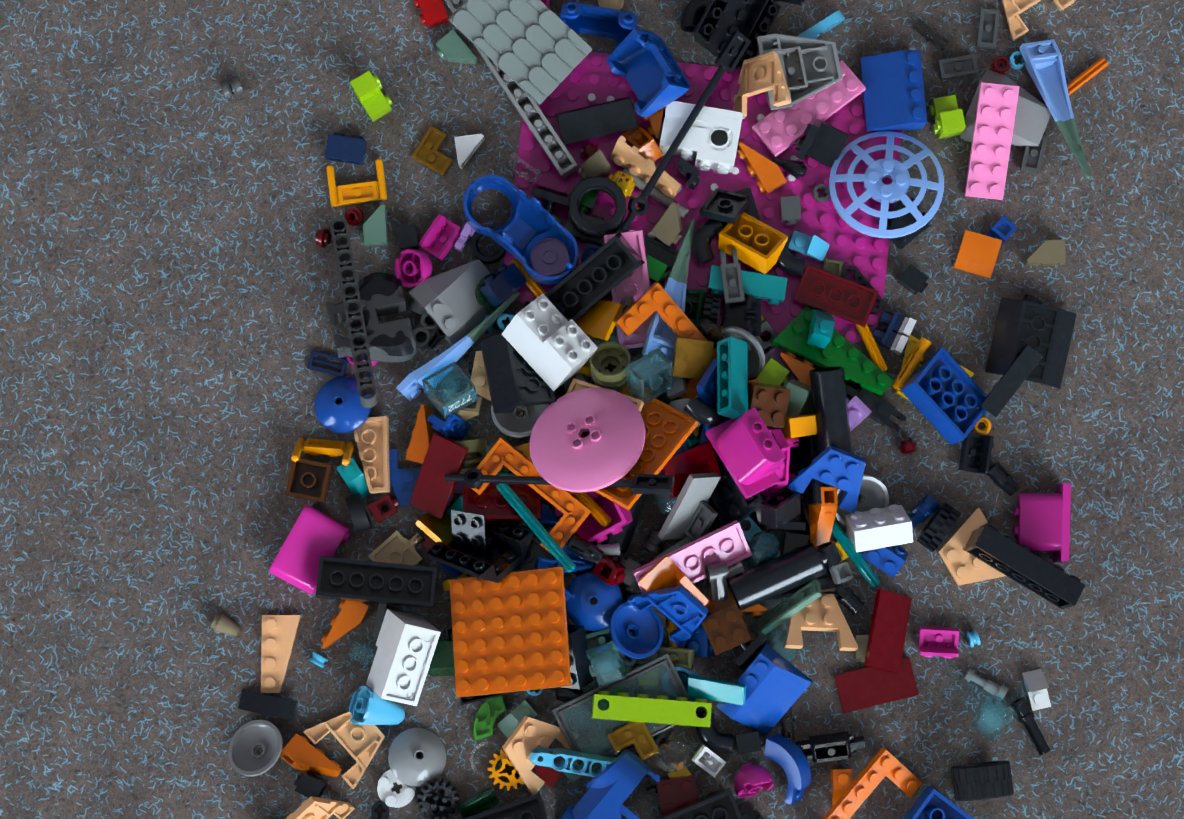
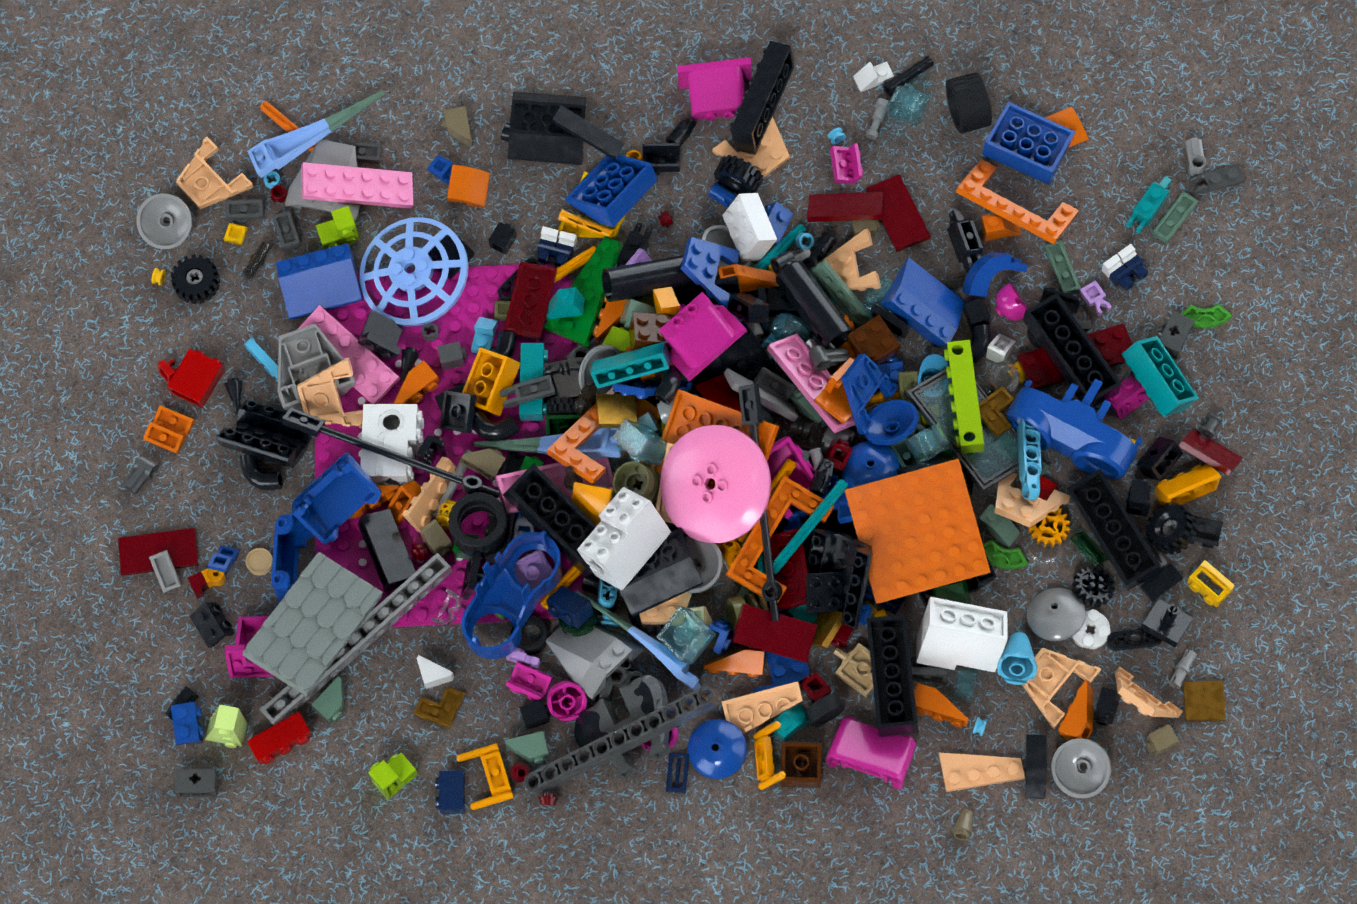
camera: 95 degrees left, 15 degrees down
(716, 690) = (933, 341): tile -> none
(859, 577) = (798, 239): none -> medium azure bush
(963, 17) = (235, 234): none -> yellow tile

